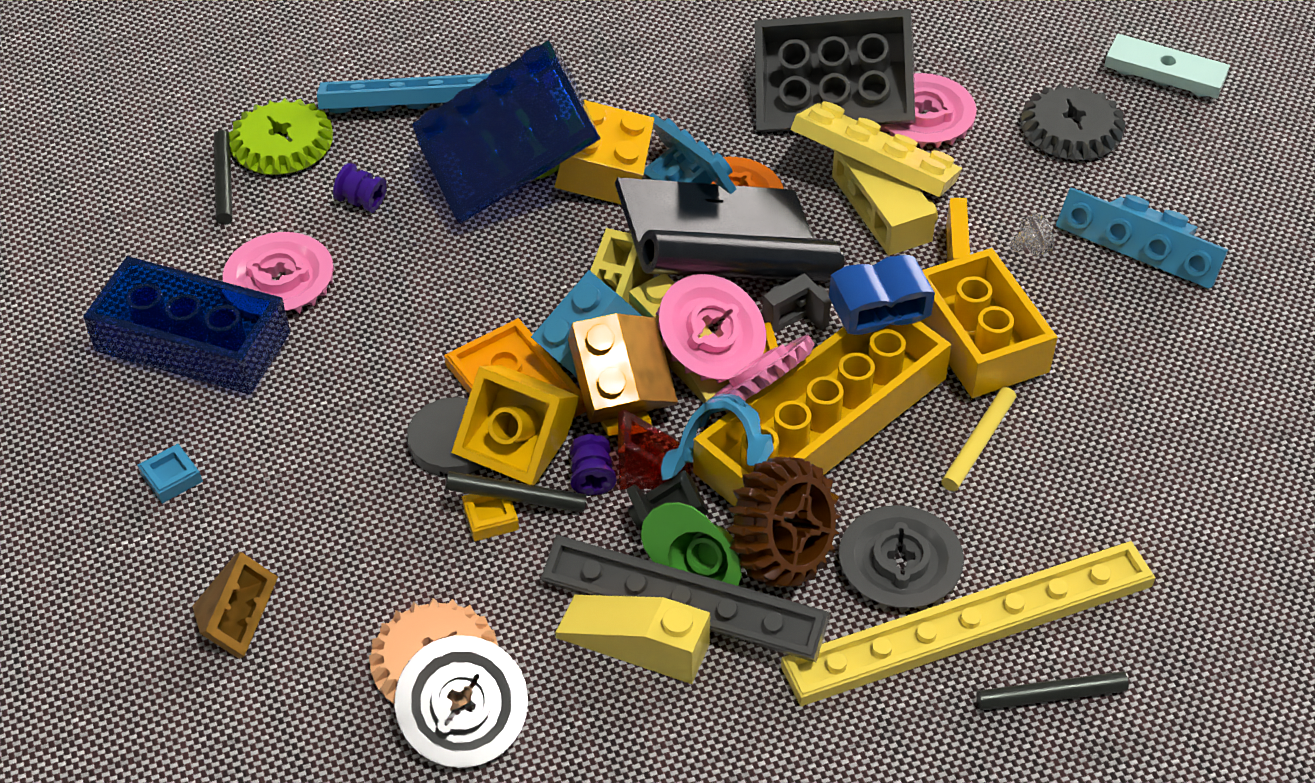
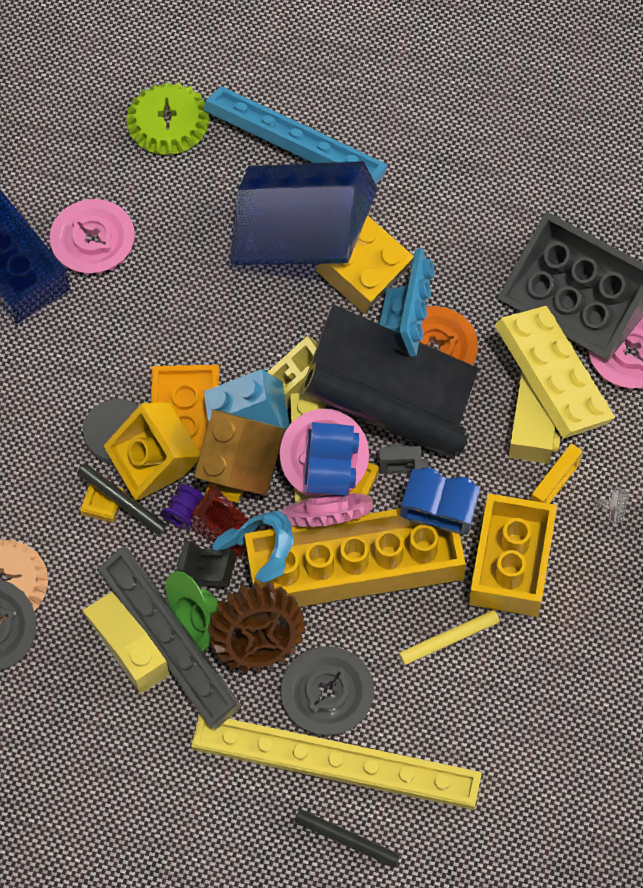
camera: 35 degrees right, 15 degrees up
(223, 185) = (108, 132): pearl dark grey bar -> none
(359, 188) = (186, 196): dark purple bush -> none
(728, 318) = (329, 458): none -> blue brick

